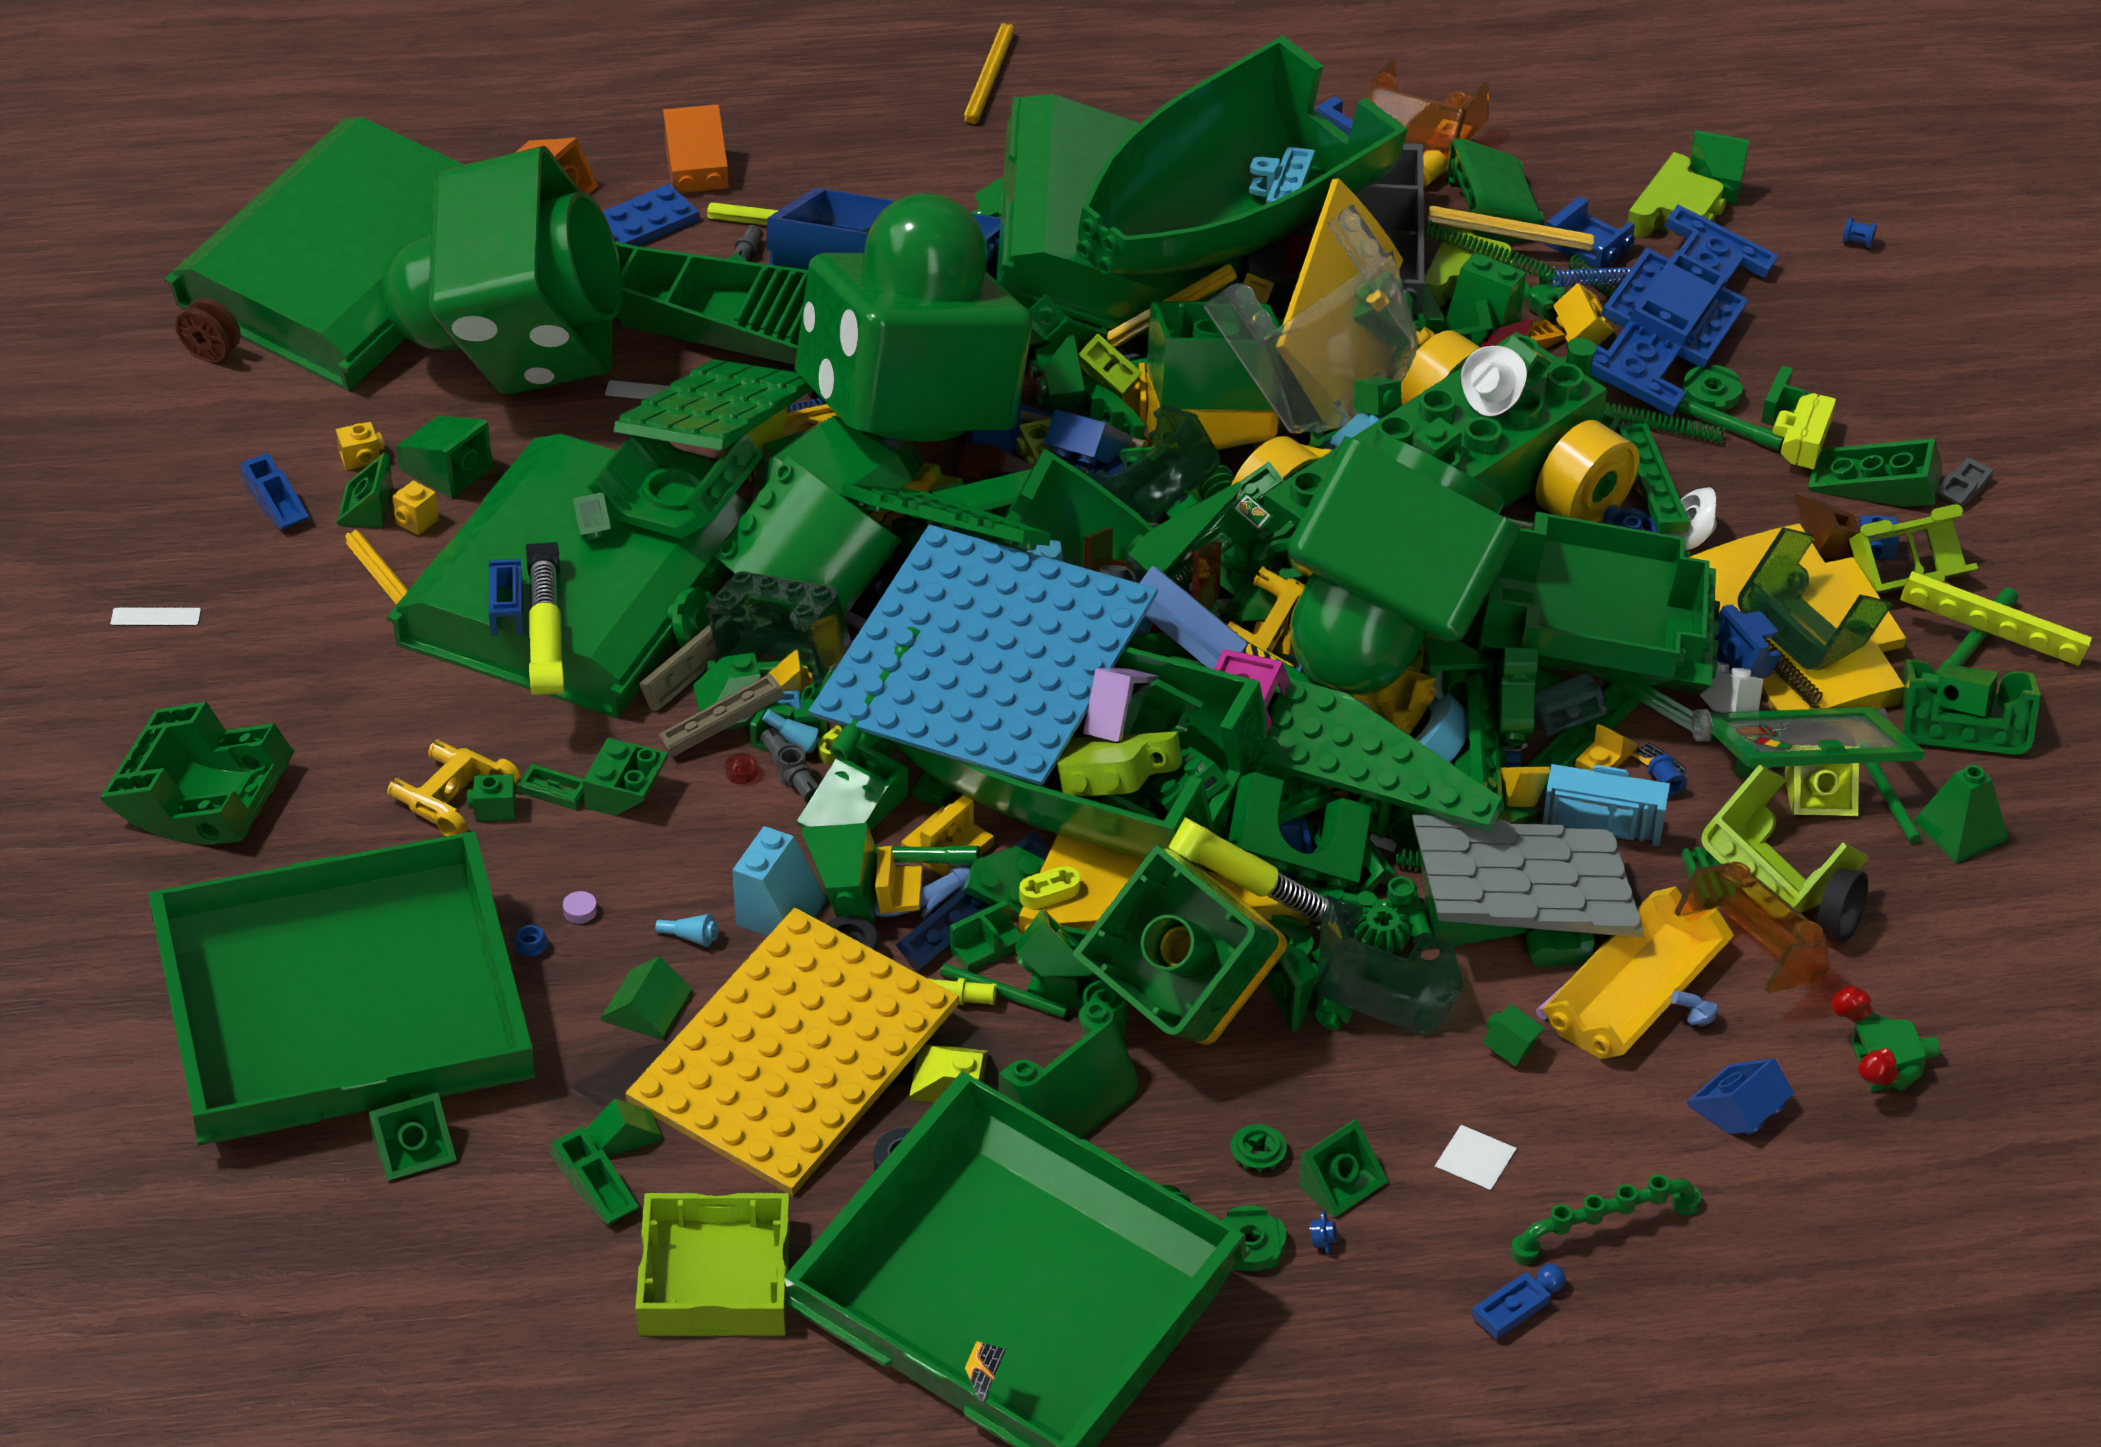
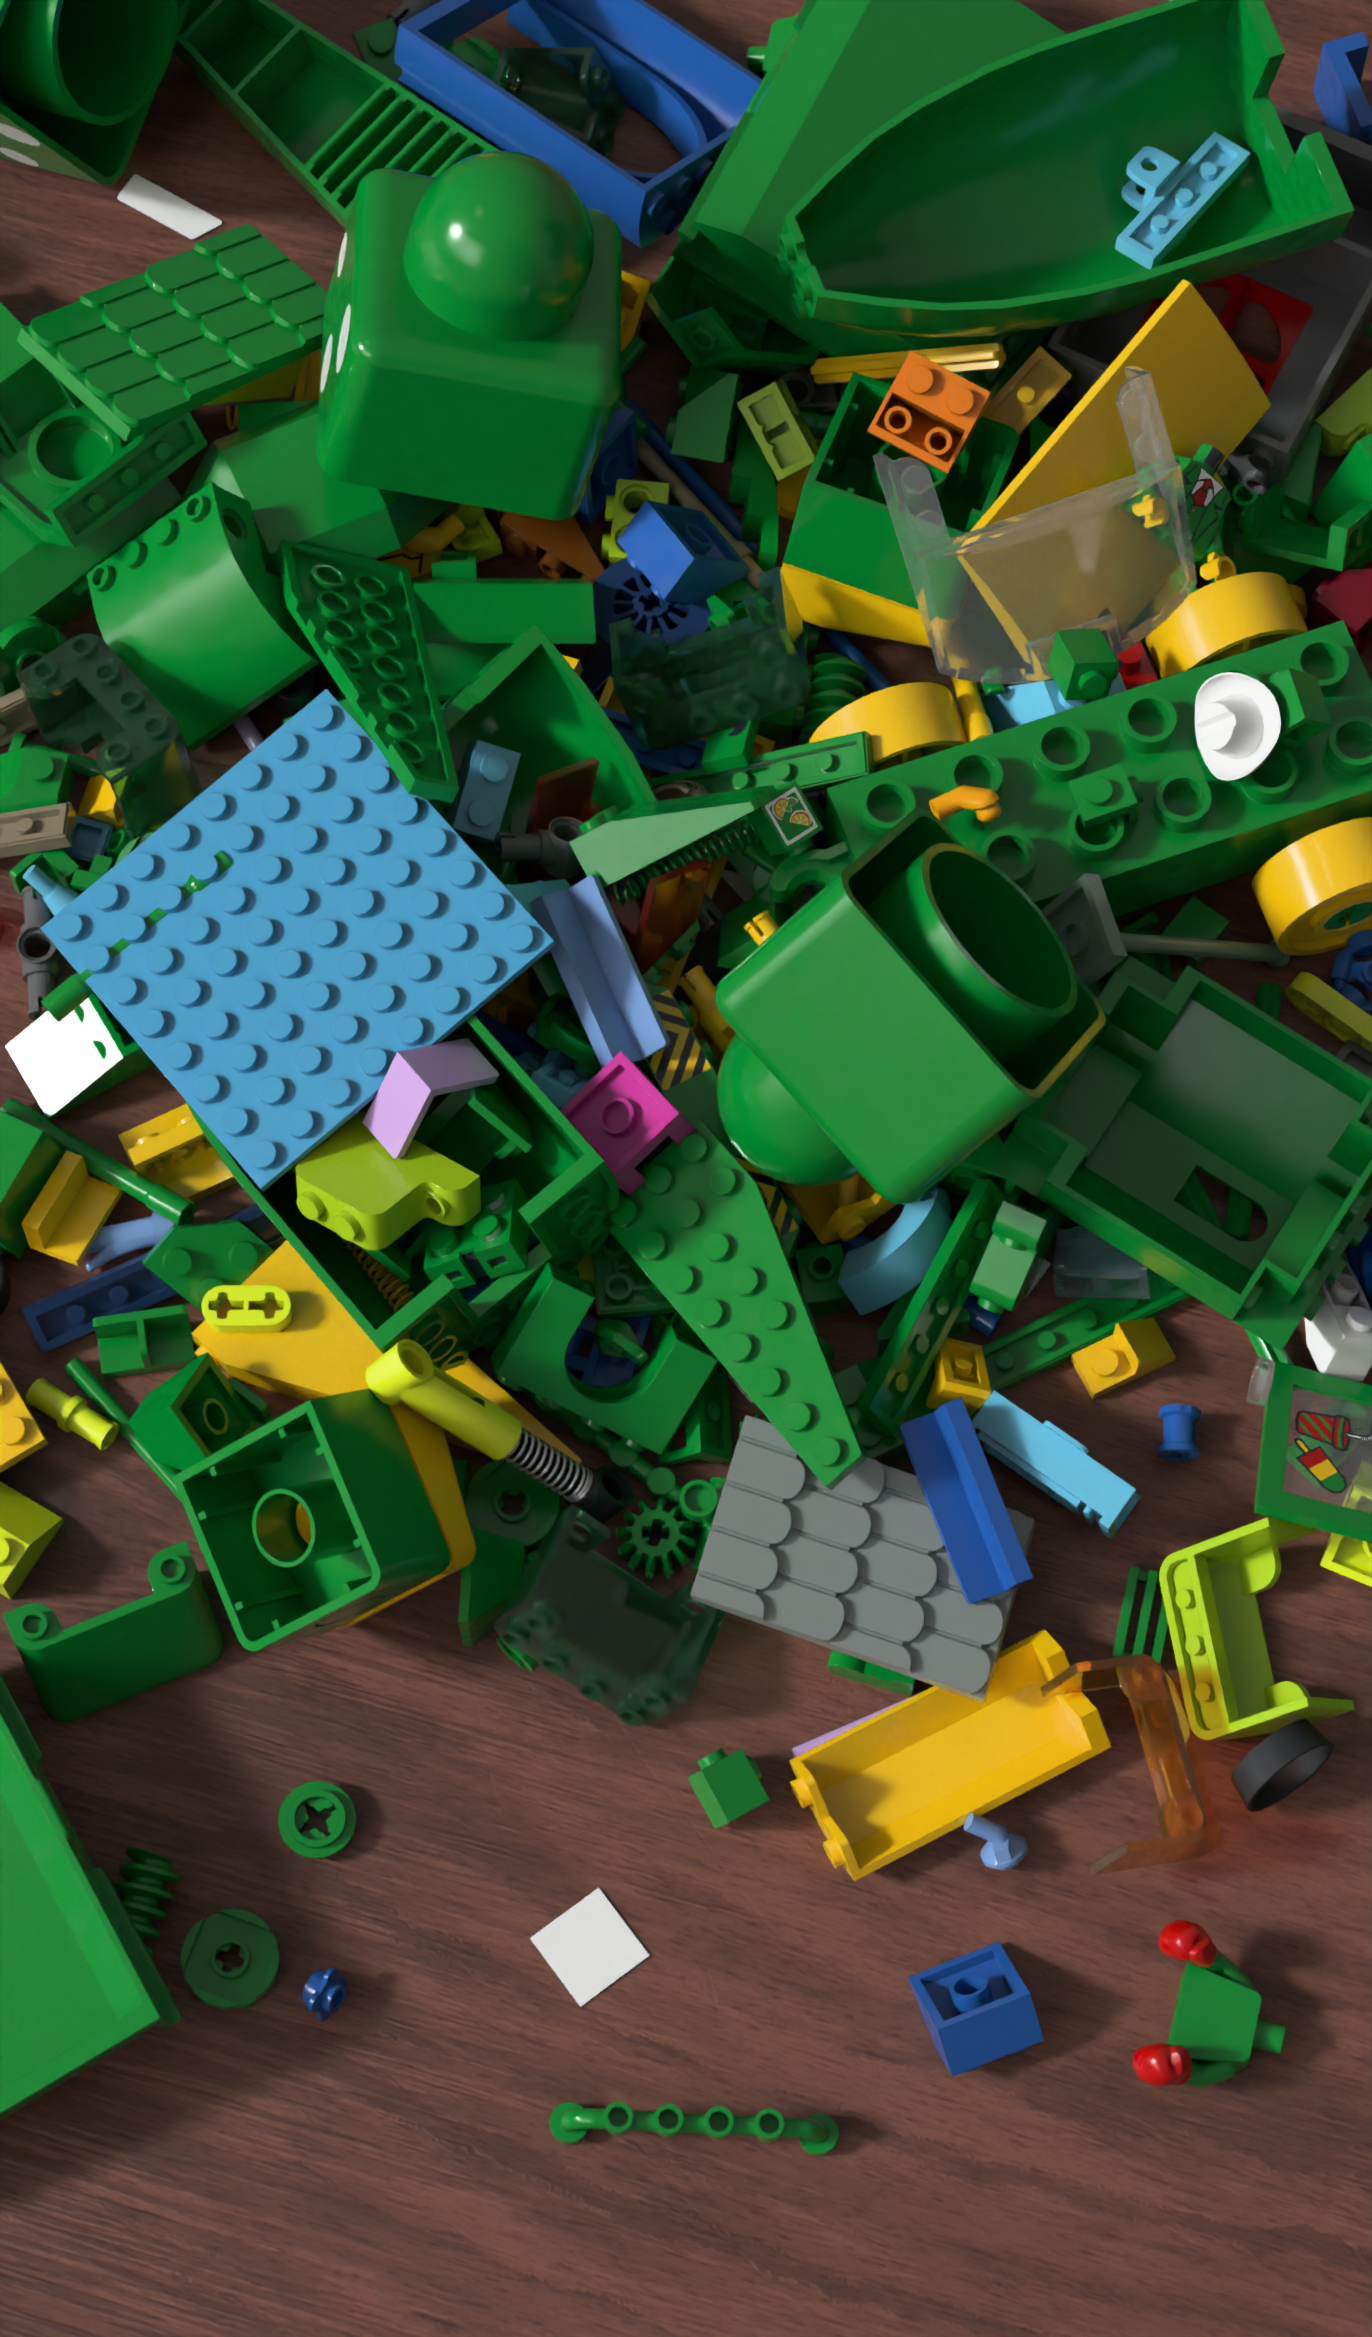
camera: 25 degrees right, 25 degrees up
(1205, 283) = (929, 412): none -> orange slope
(1294, 834) = (618, 1341): none -> green piece
(1340, 1170) = (396, 1910): green slope -> none
(1518, 1300) = (514, 2203): blue plate -> none
(1573, 823) = (965, 1502): none -> blue panel
(1650, 751) = (1188, 1387): black sticker -> none

